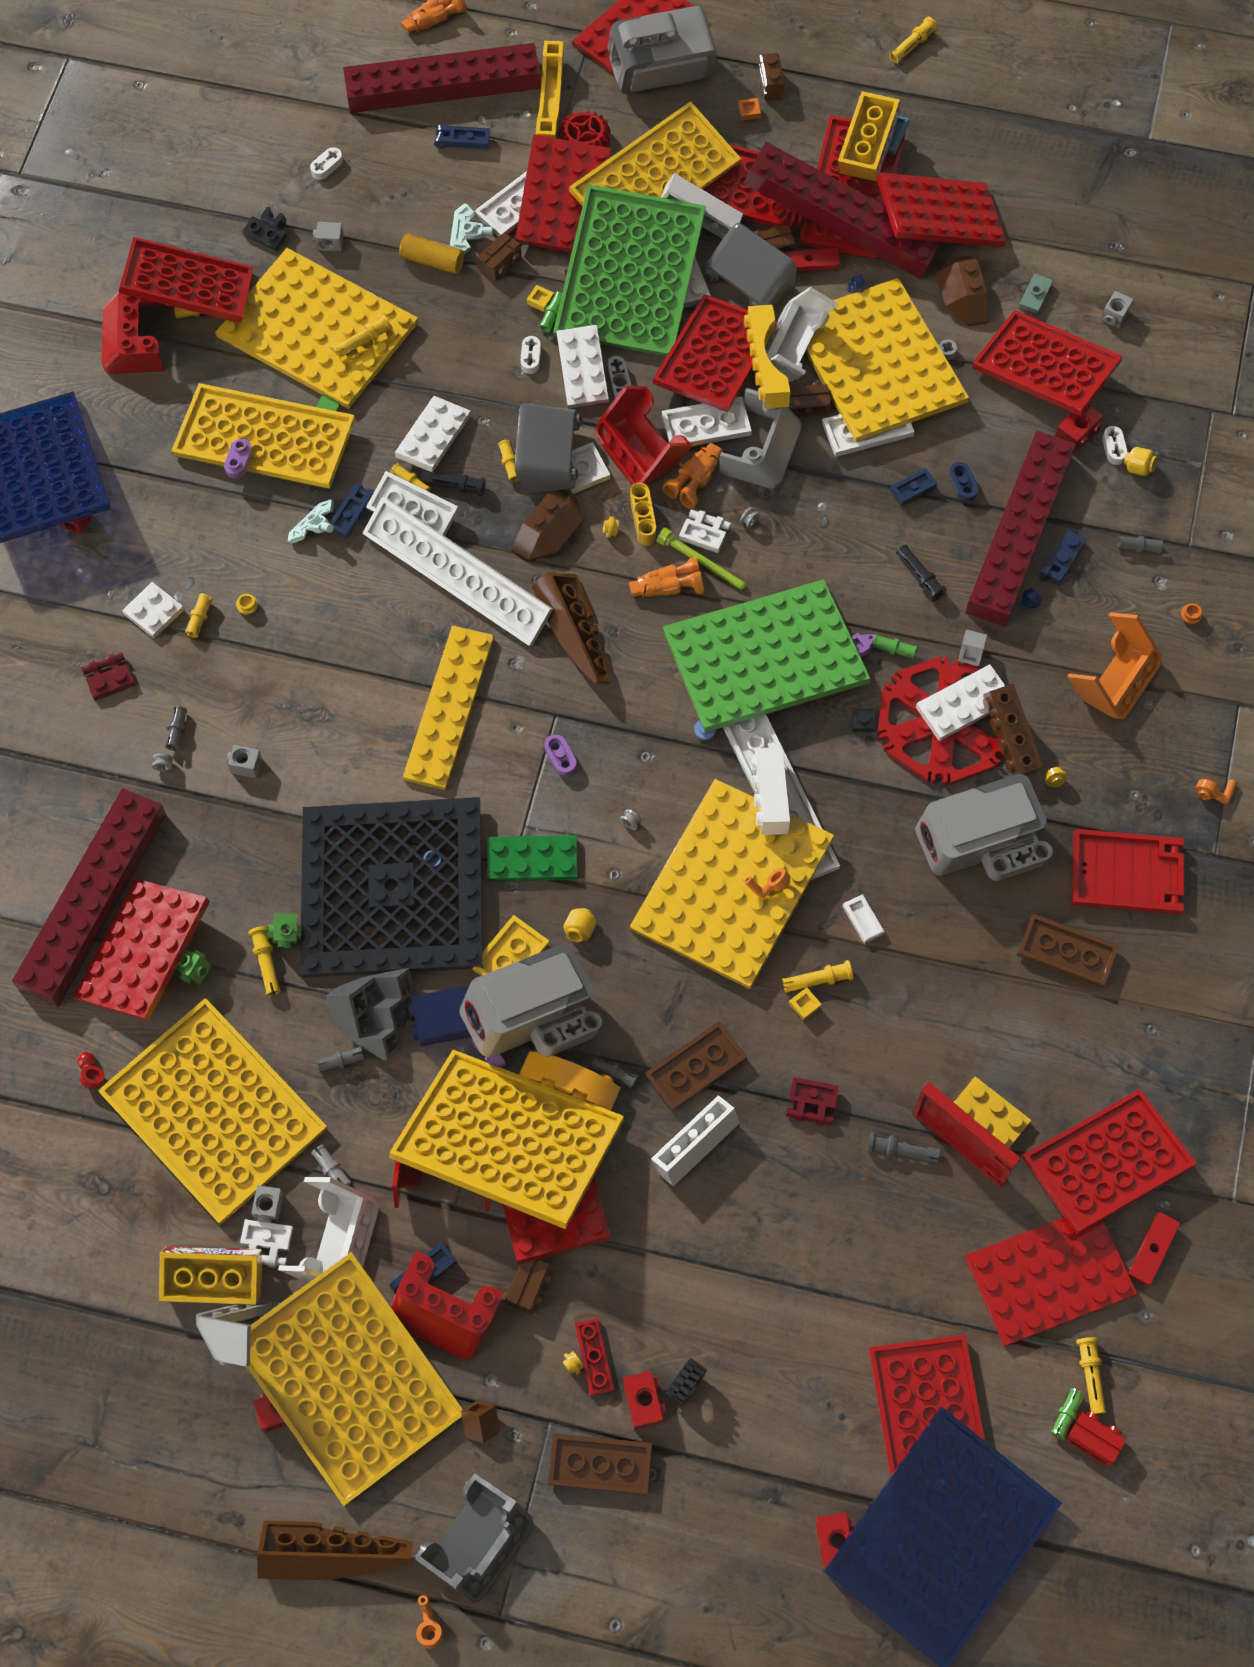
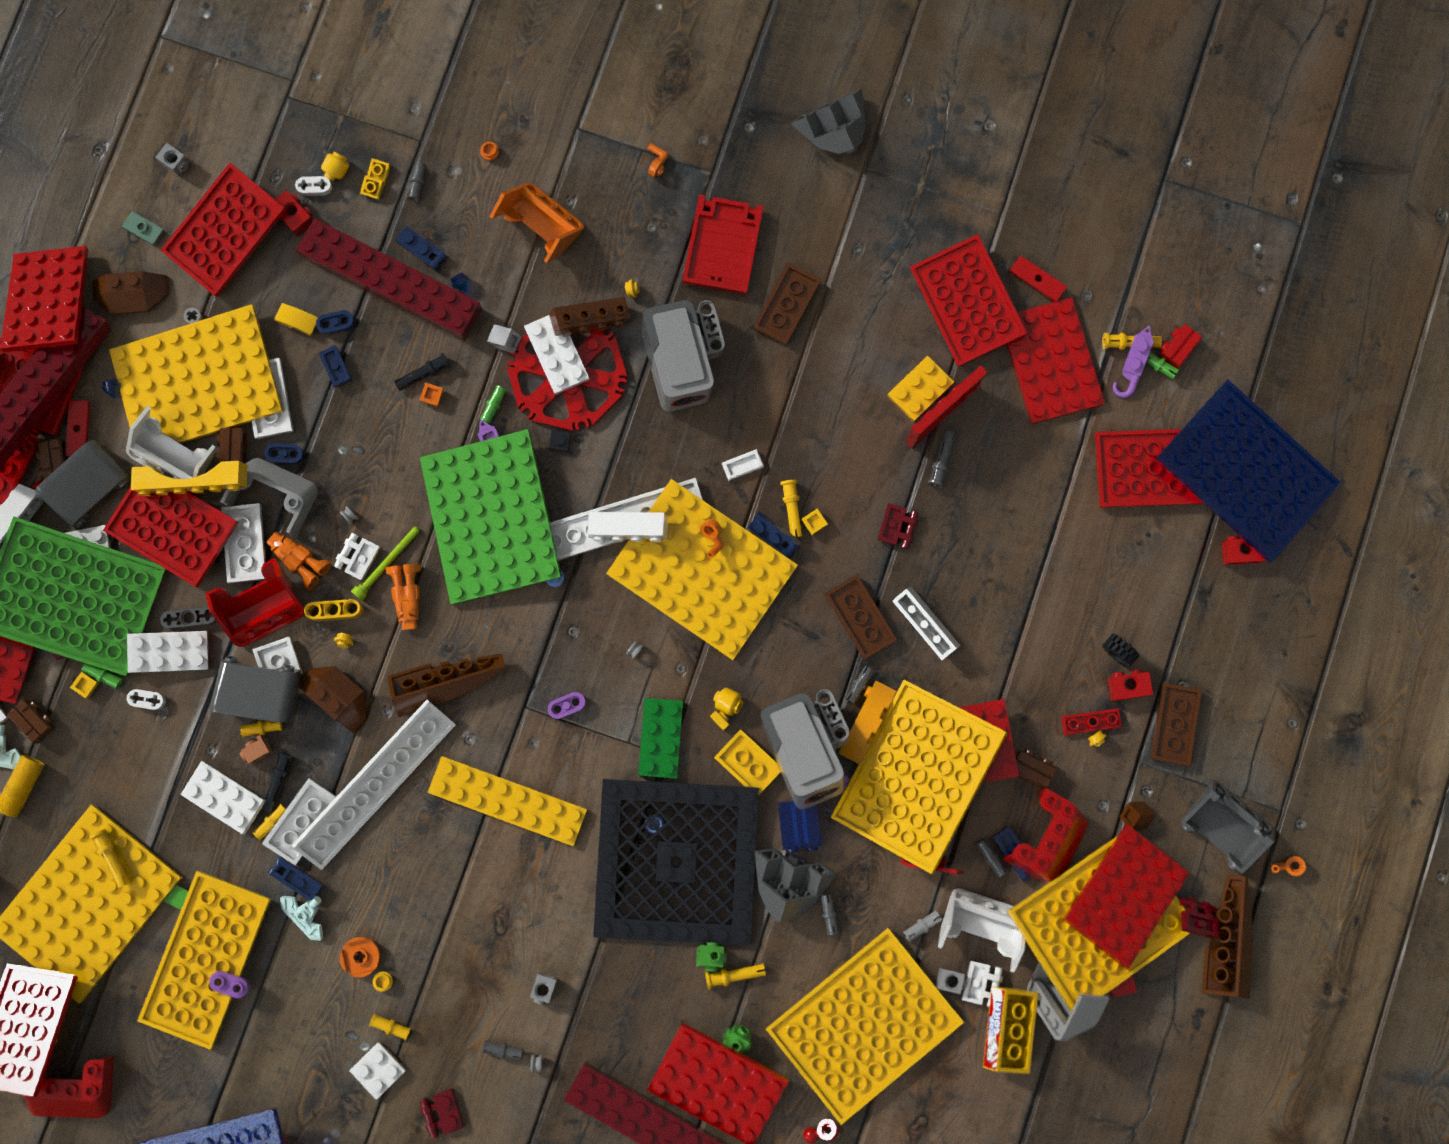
camera: 85 degrees left, 15 degrees up
(275, 590) = (370, 962): none -> orange plate
(348, 1505) = (1199, 923): none -> dark red plate
(377, 1405) = (1126, 896): none -> red plate
(417, 1243) = (991, 857): none -> dark grey pin
(485, 458) = (256, 750): none -> nougat brick
(557, 918) = (720, 719): none -> yellow plate
(783, 959) = (774, 534): none -> dark blue plate
(809, 451) = (285, 453): none -> dark blue plate
(896, 584) = (431, 394): none -> orange plate
(960, 443) = (296, 318): none -> yellow slope
(1066, 1380) = (1135, 362): none -> medium lavender plate
(1135, 505) = (375, 179): none -> yellow slope

